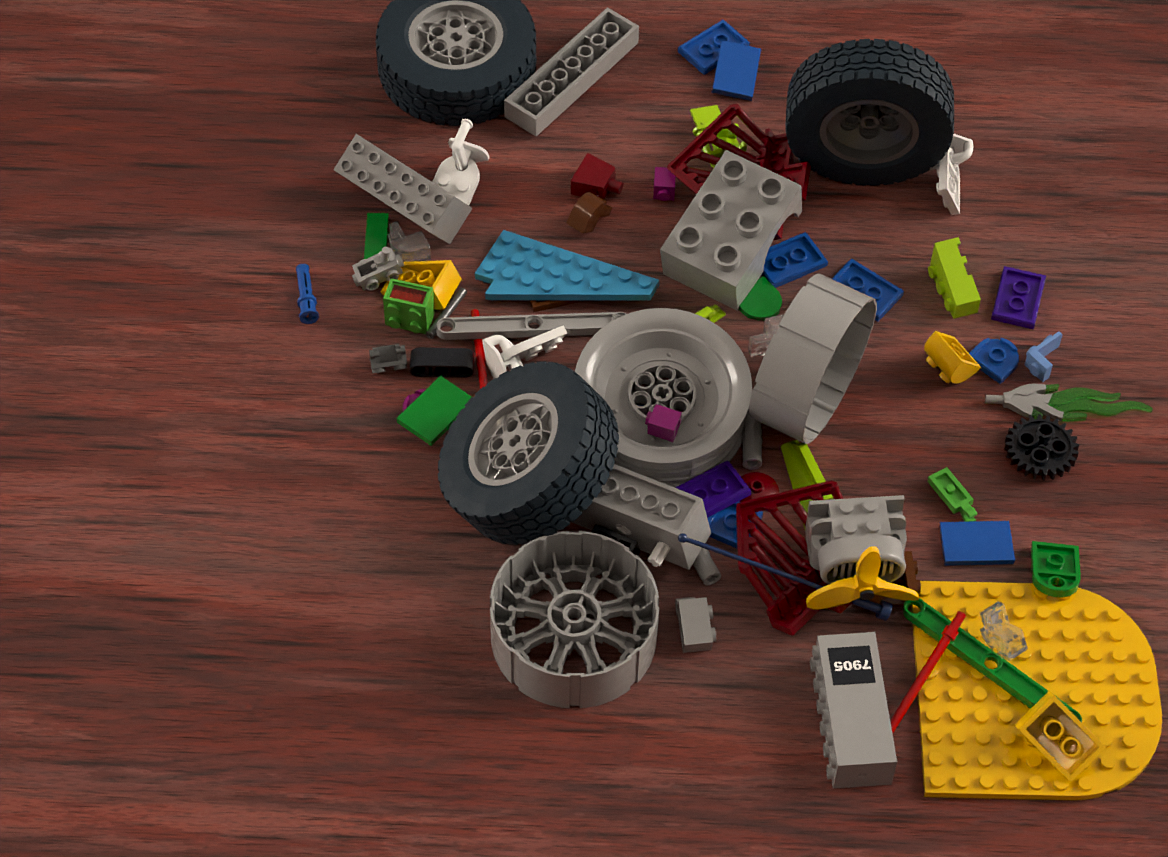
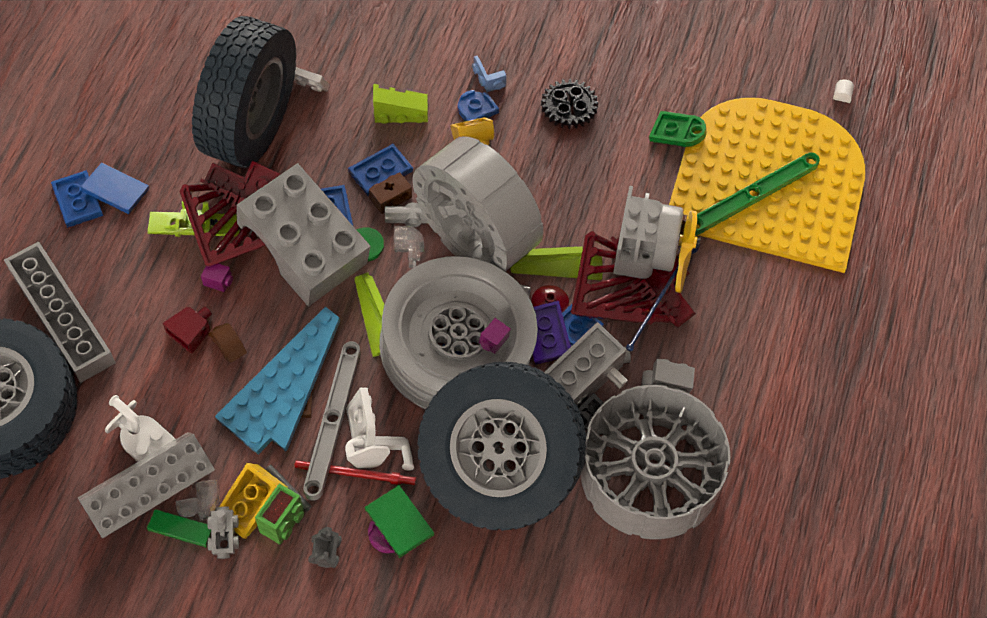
camera: 75 degrees left, 5 degrees up
(307, 300) = (231, 607): blue pin -> none
(442, 362) = (345, 504): black beam -> none
(853, 710) = (776, 290): light grey brick -> none
(948, 634) = (729, 208): red bar -> none
(953, 494) = (594, 171): bright green plate -> none
(976, 543) = (639, 170): blue tile -> none
(999, 634) = (735, 177): clear brick -> none
(1018, 297) = (424, 74): dark purple tile -> none
(1031, 401) = (527, 97): piece -> none
(1060, 736) = (827, 168): yellow slope -> none

